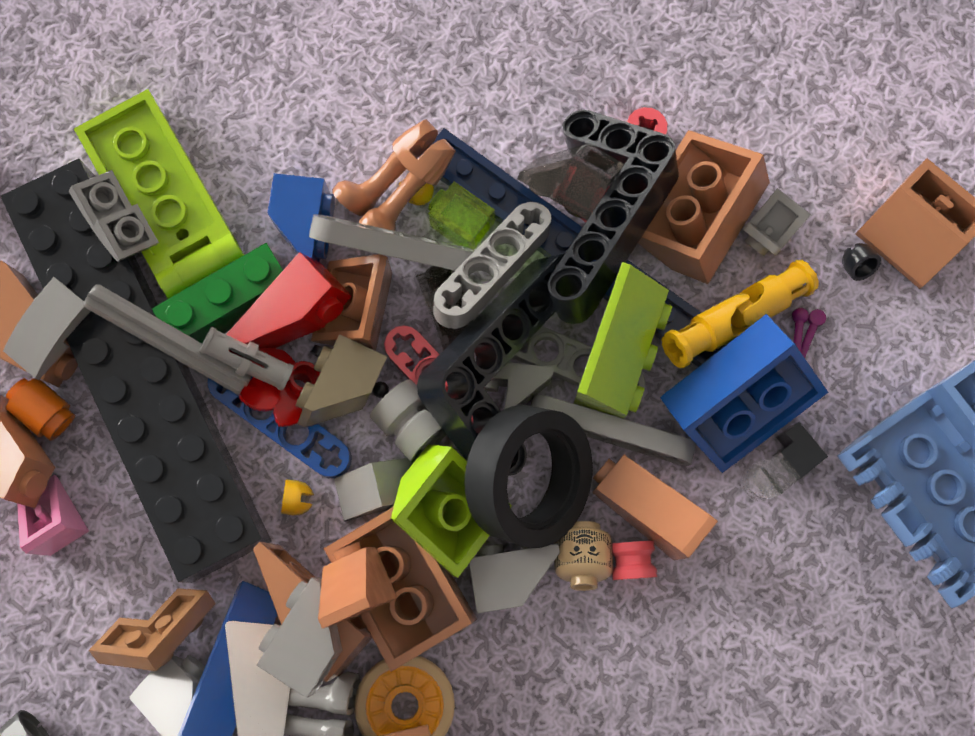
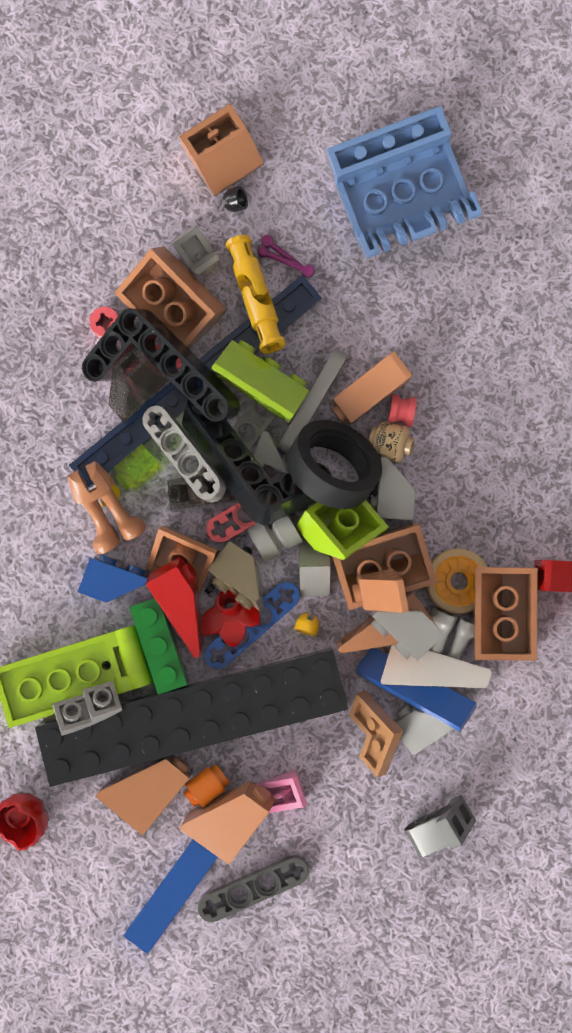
camera: 75 degrees left, 10 degrees up
(43, 328) = (157, 766): light grey slope -> none
(162, 336) = (184, 686): light grey axle -> none
(218, 346) = (221, 620): light grey pin -> none
(388, 242) = (151, 519): light grey beam -> none
(744, 393) = (311, 308): blue slope -> none
(787, 466) = (364, 293): leg -> none

